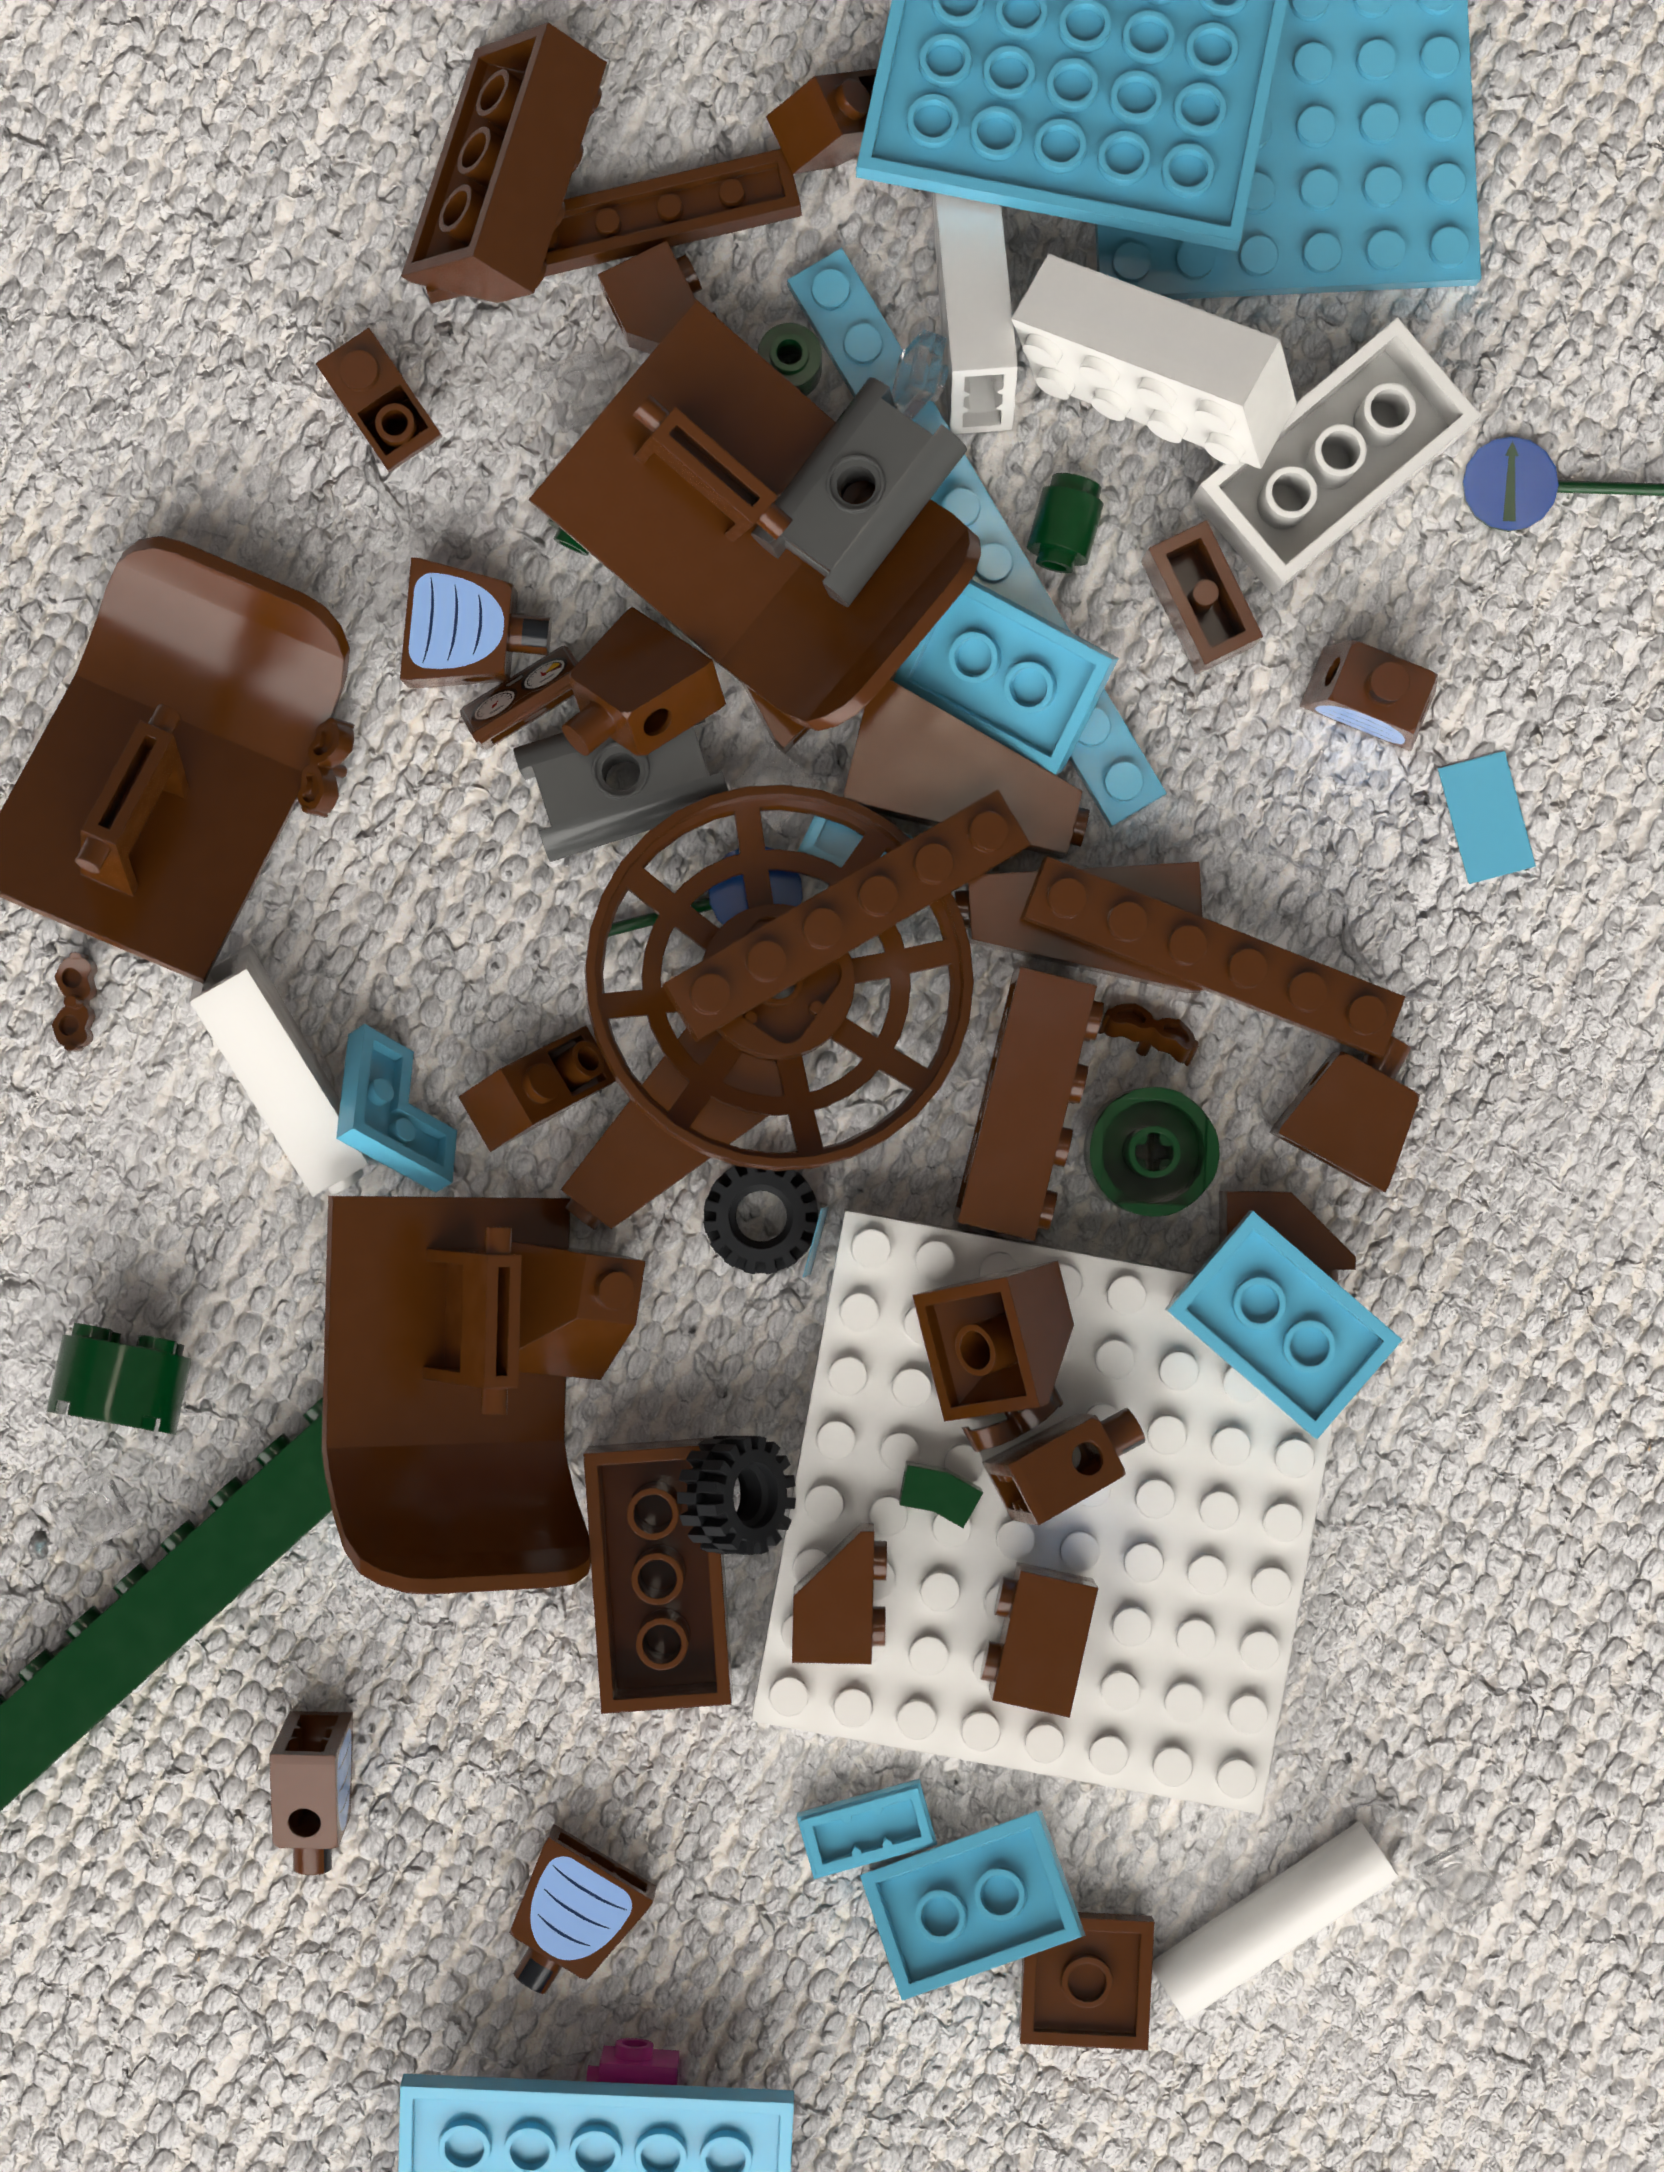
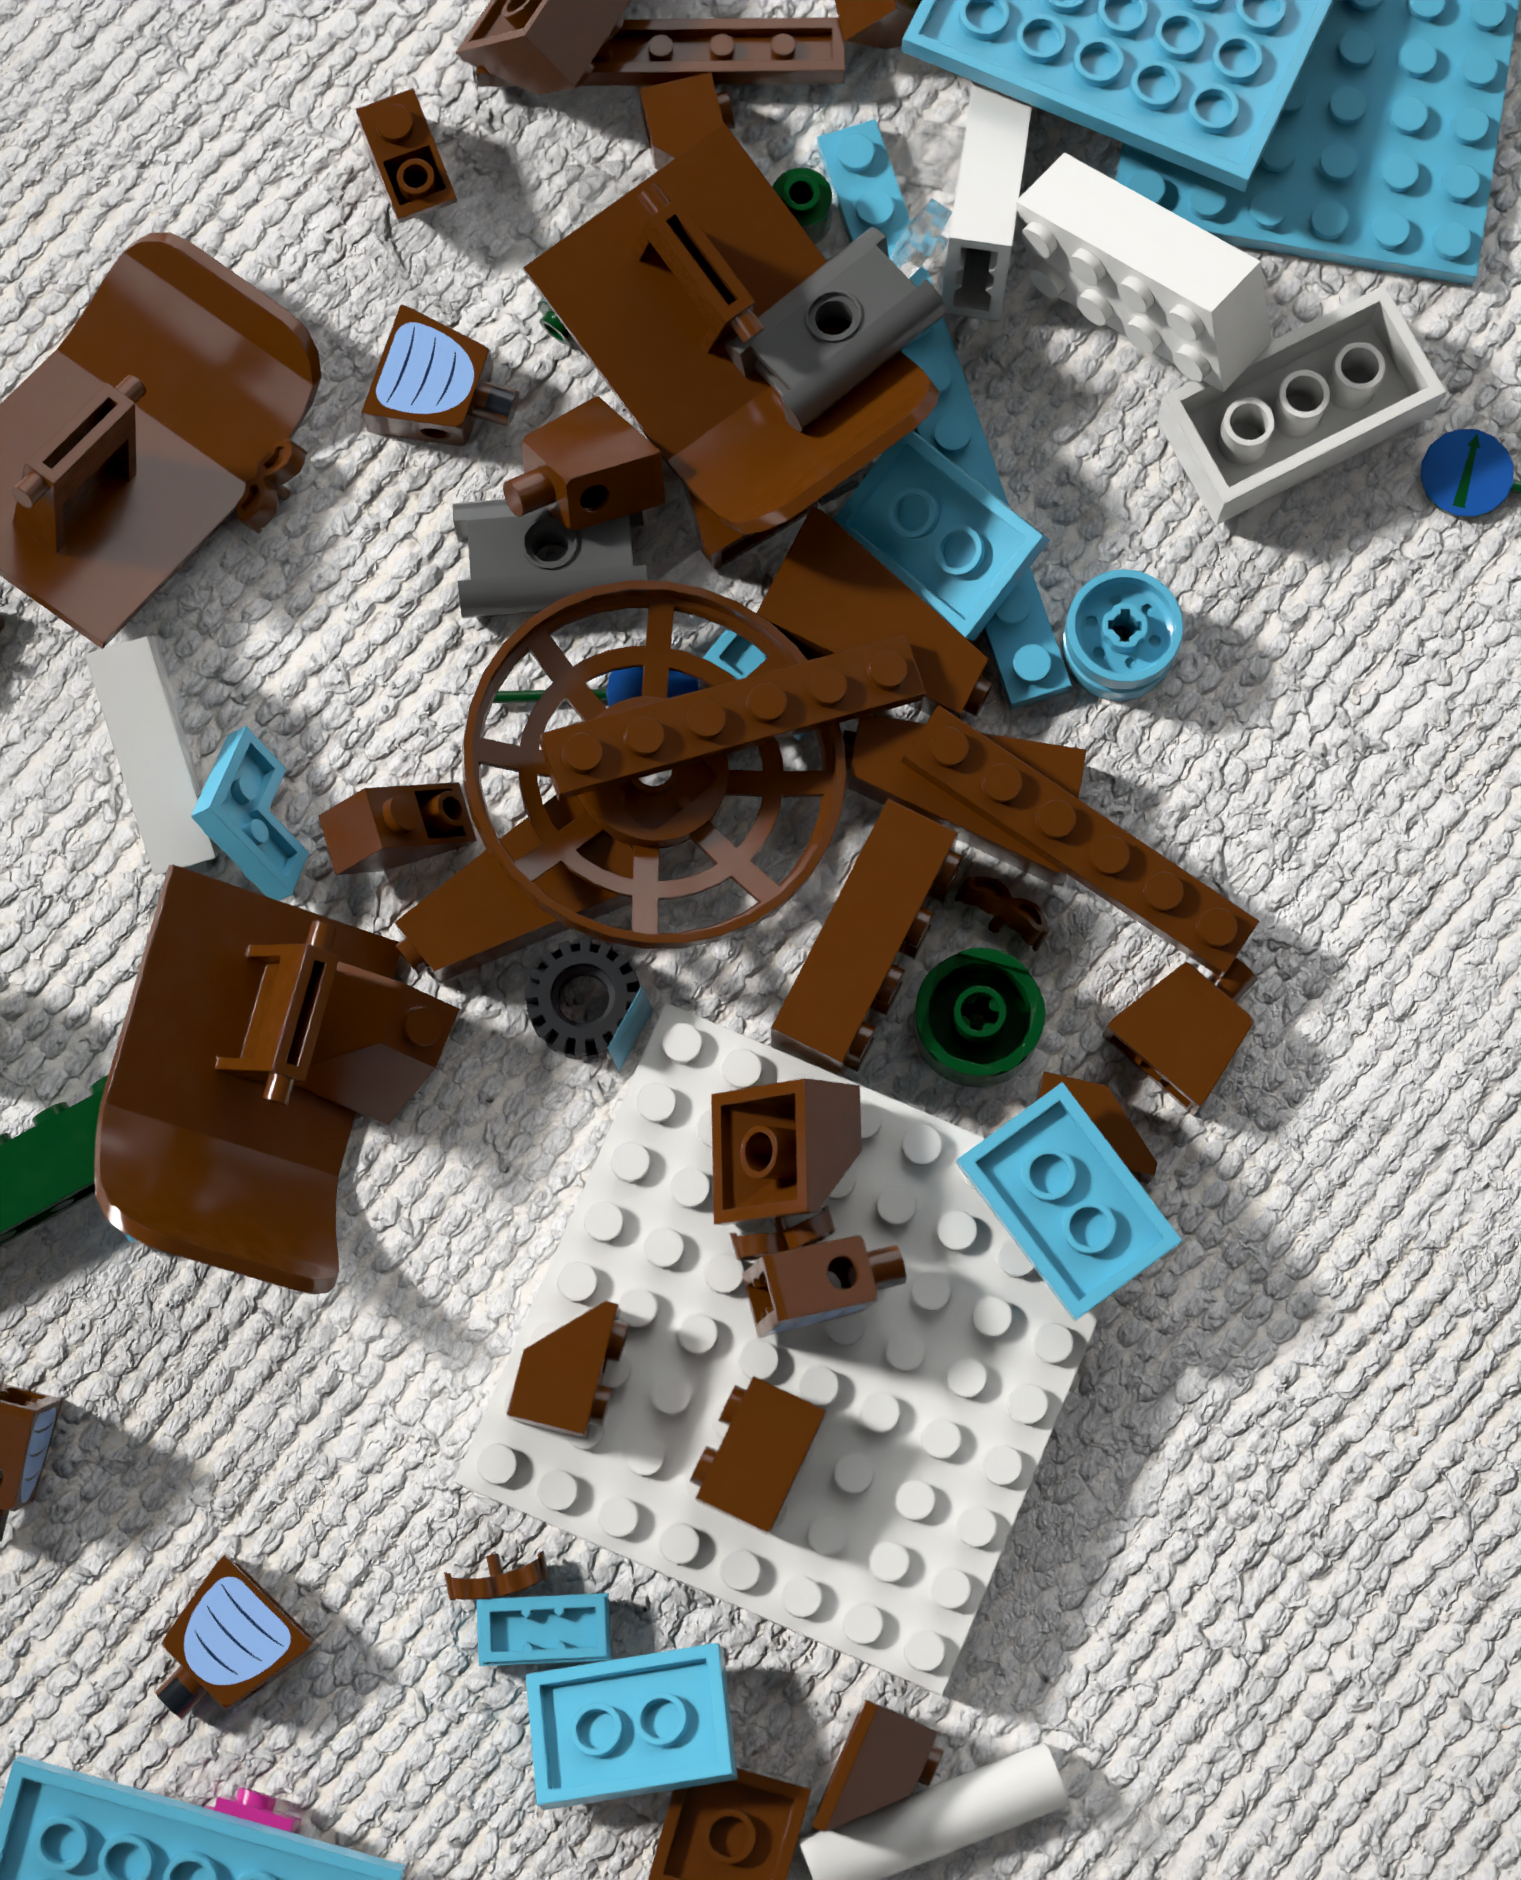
camera: 15 degrees right, 10 degrees down
(520, 699) = (470, 466): reddish brown slope -> none
(653, 1588) = (398, 1319): reddish brown brick -> none
(712, 1490) = (466, 1244): black tyre -> none
(812, 1796) = (498, 1583): none -> reddish brown piece
(904, 271) = (930, 154): none -> clear plate
(939, 1491) = (692, 1289): dark green piece -> none
(1066, 522) = (1030, 412): dark green brick -> none
(1201, 597) = (1143, 504): reddish brown brick -> none
(1209, 1891) = (877, 1766): none -> reddish brown slope
(1223, 705) = (1149, 620): none -> medium azure wheel
(1371, 692) = (1292, 633): reddish brown torso -> none
(1486, 817) = (1379, 781): medium azure sticker -> none

